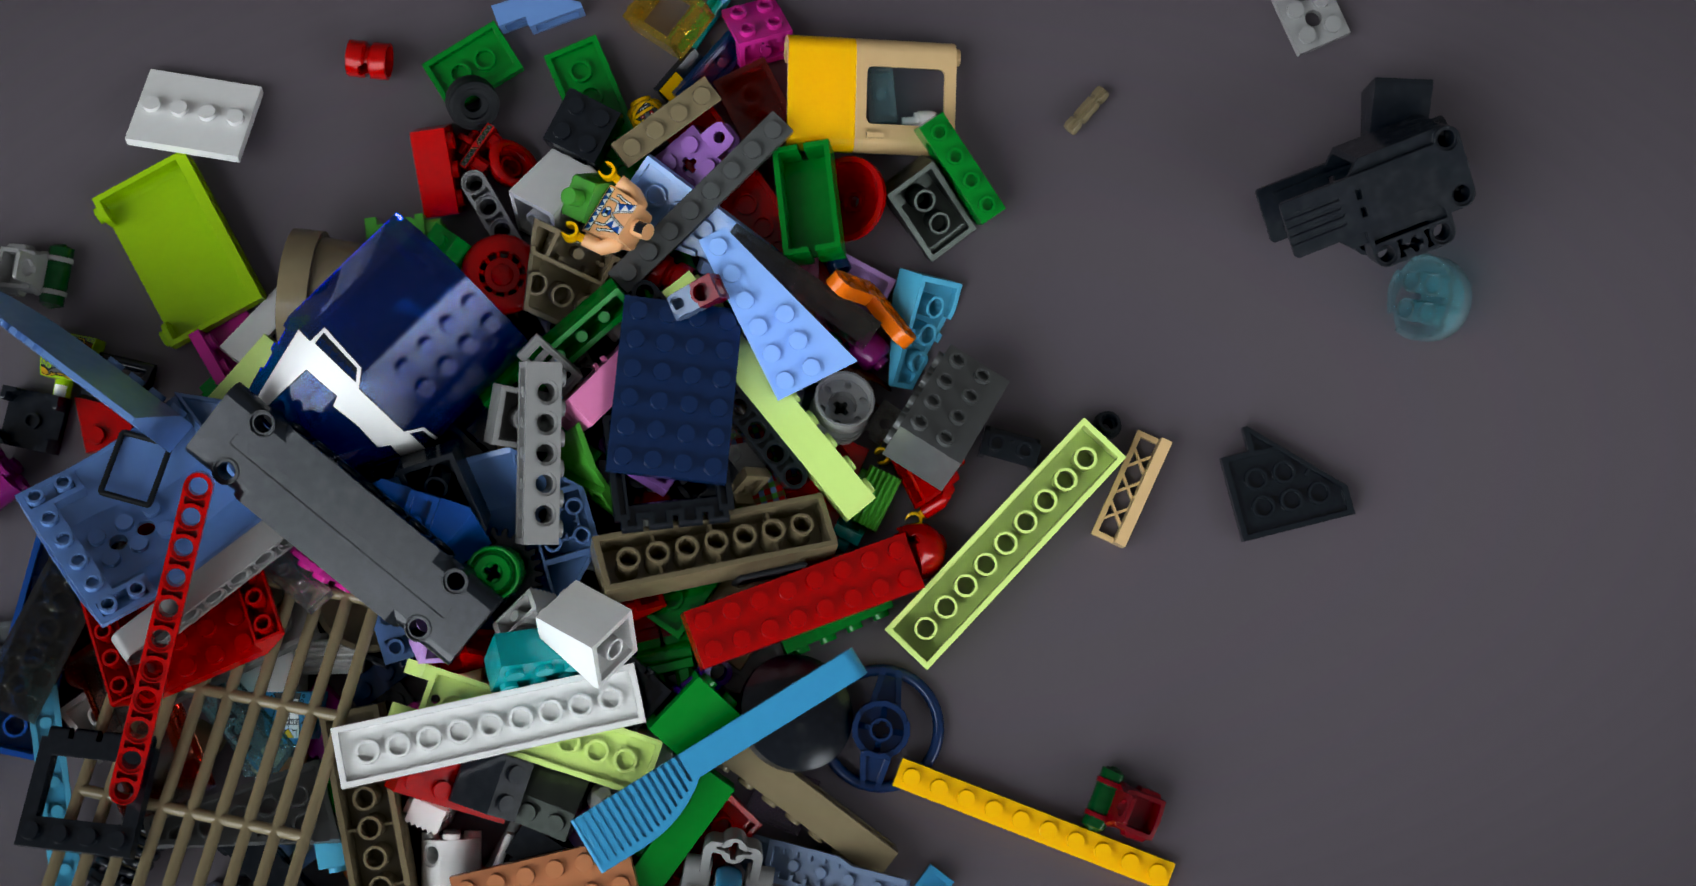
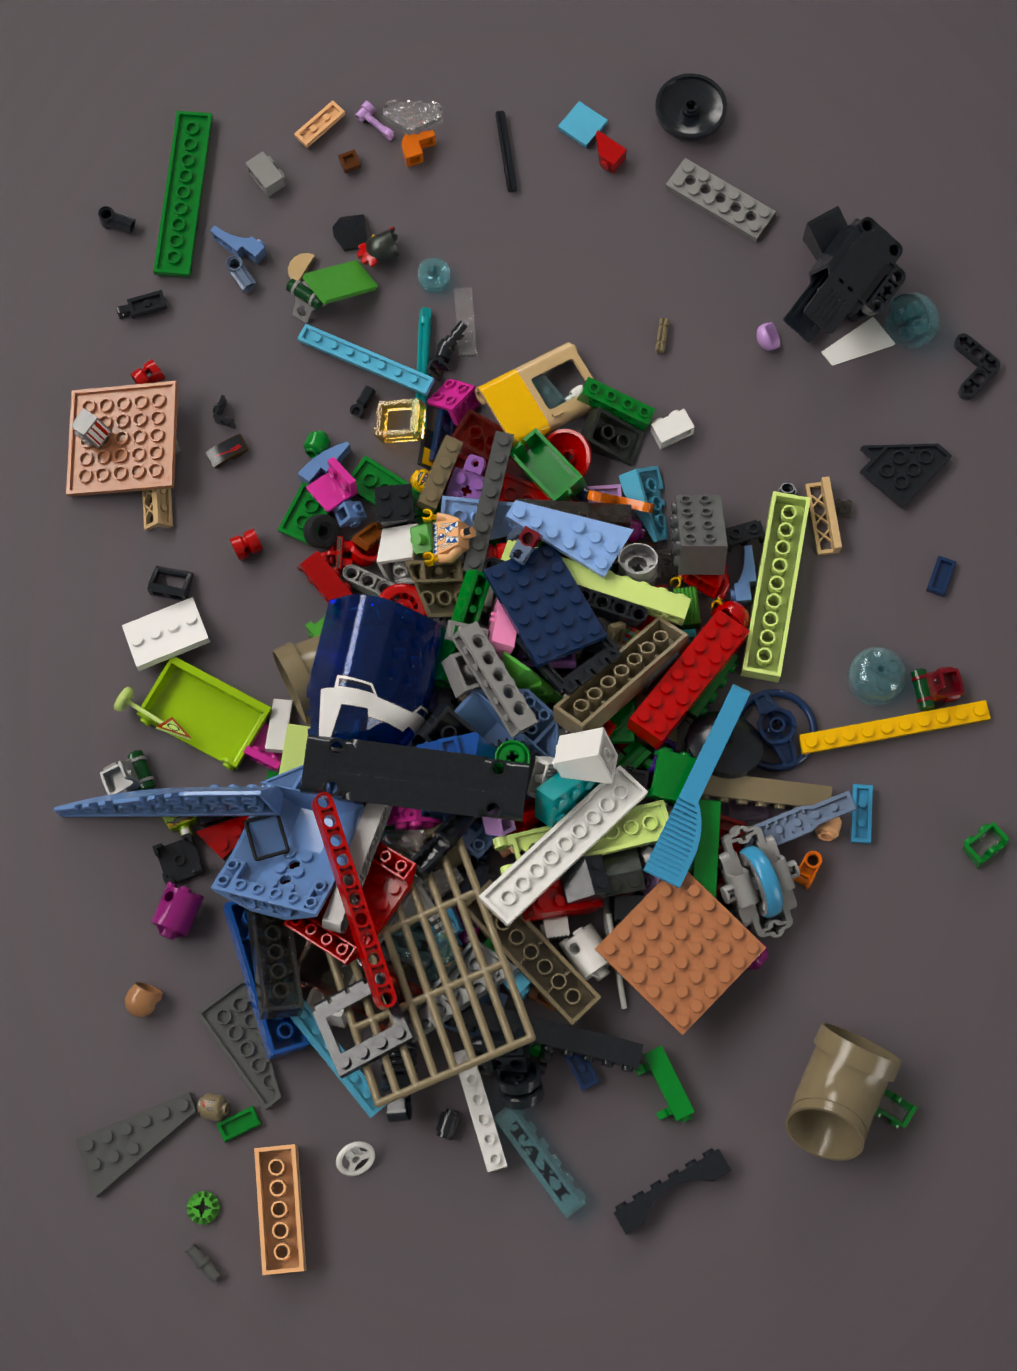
camera: 30 degrees left, 10 degrees down
(121, 244) = (169, 726): none -> yellowish green piece
(257, 72) = (168, 591): none -> black tile
(328, 625) = (445, 838): none -> black slope
(521, 53) = (333, 487): none -> dark pink bracket
(524, 102) = (350, 514): none -> medium blue brick
(525, 148) = (368, 536): none -> dark orange tile
(956, 522) = (741, 590): none -> medium blue slope
(1014, 245) = (672, 428): none -> white brick
(1037, 738) = (875, 686): none -> clear light blue cylinder
(1165, 501) = (843, 513): none -> clear smoke plate
(1223, 200) = (768, 336): none -> lavender hair
(1231, 663) = (941, 576): none -> dark blue tile
(1340, 281) = (861, 341): none -> white sticker
(1478, 420) = (982, 368): none -> black beam

